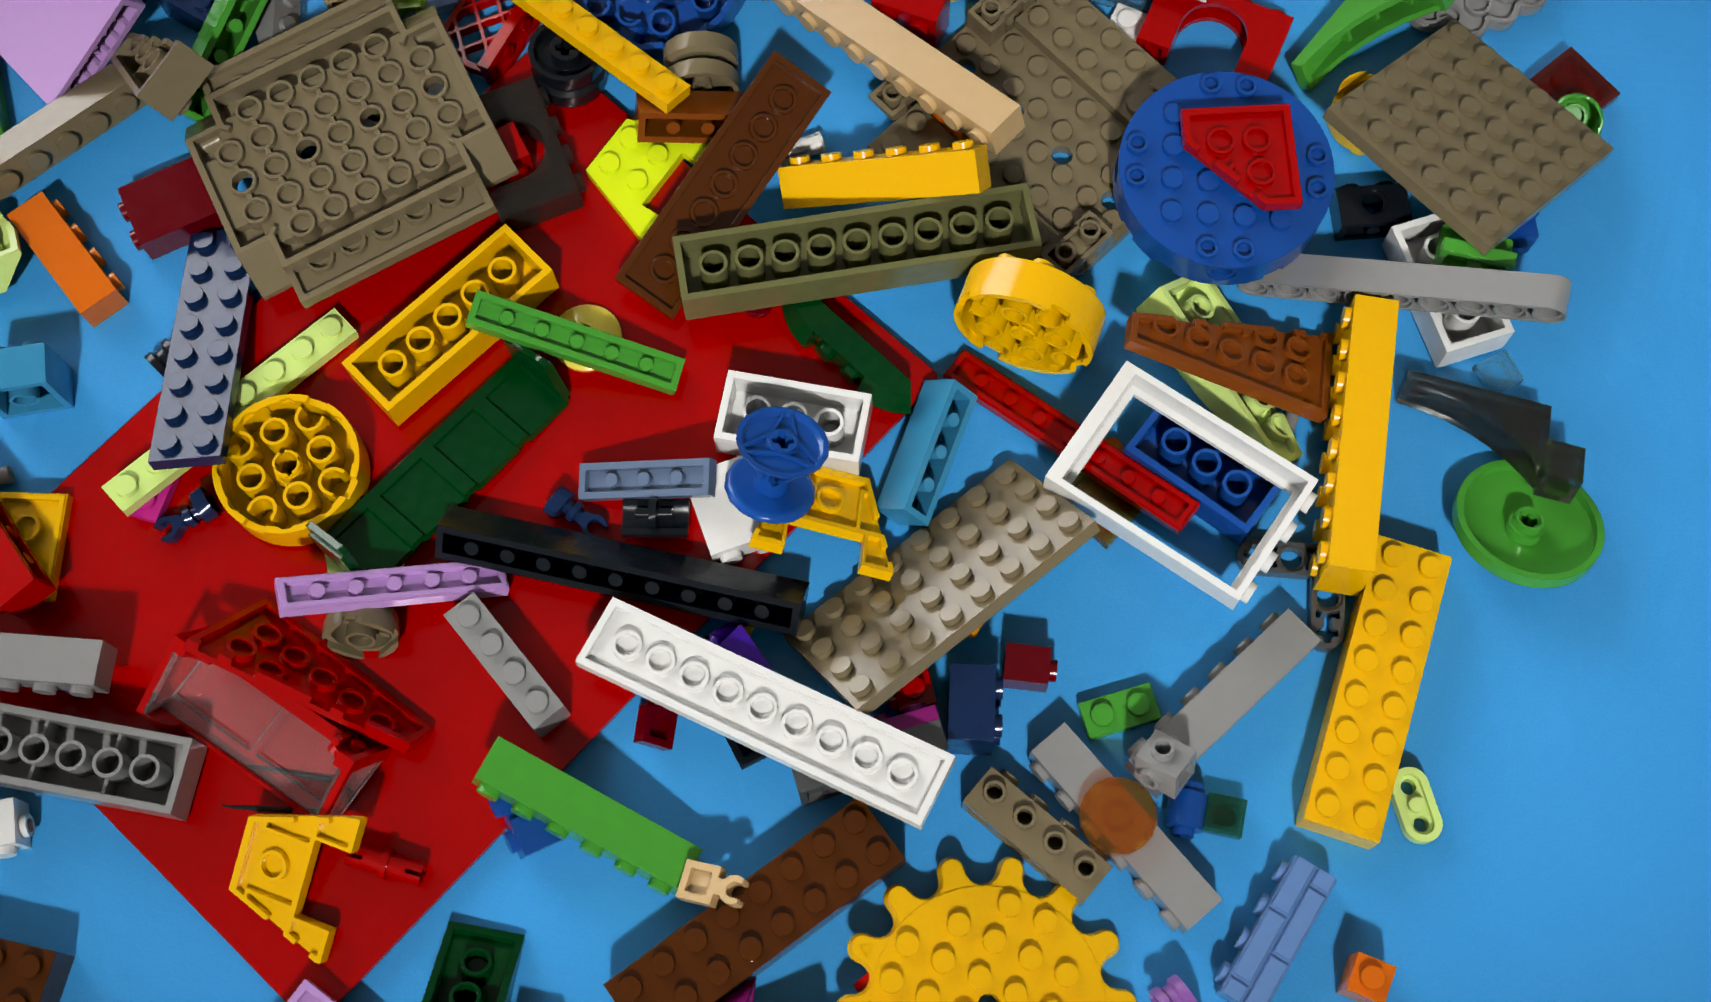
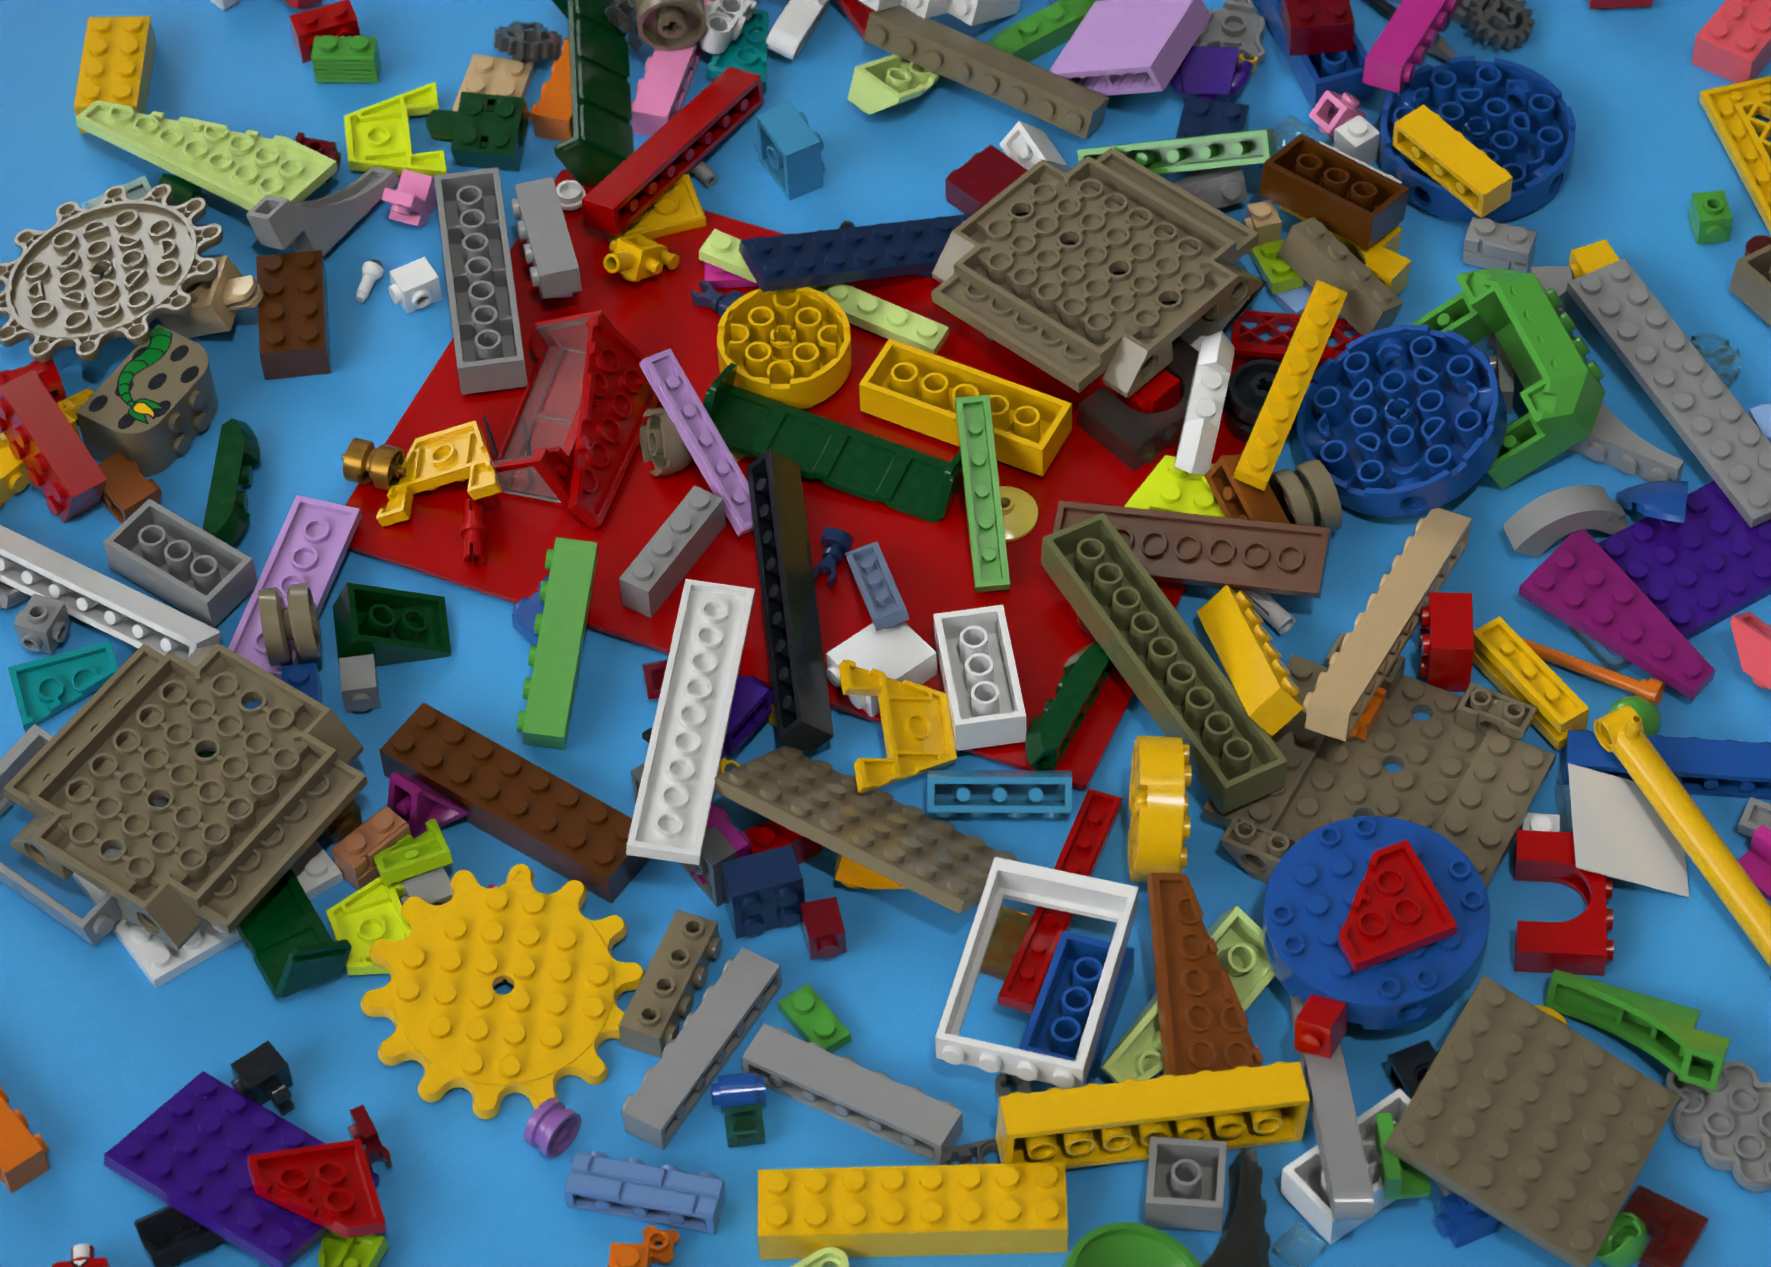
camera: 70 degrees right, 20 degrees down
(68, 259) = (916, 142): orange brick -> none
(93, 577) = (638, 257): none -> yellow piece
(137, 157) = (1029, 146): none -> white panel
(161, 72) = (1097, 122): dark tan wedge -> none
(241, 954) = (368, 463): none -> pearl gold wheel
(559, 108) = (1205, 404): none -> white brick
(655, 518) = (846, 608): black hips -> none
(706, 883) = (531, 742): tan plate -> none
(776, 463) = (917, 653): blue piece -> none
(1117, 816) = (705, 1024): clear orange tile -> none
(1164, 763) = (763, 1035): light grey brick -> none
(1323, 263) = (1320, 1026): none -> red brick
(1323, 946) = (664, 1253): none -> orange plate
(1424, 440) = (1185, 1184): none -> light grey brick

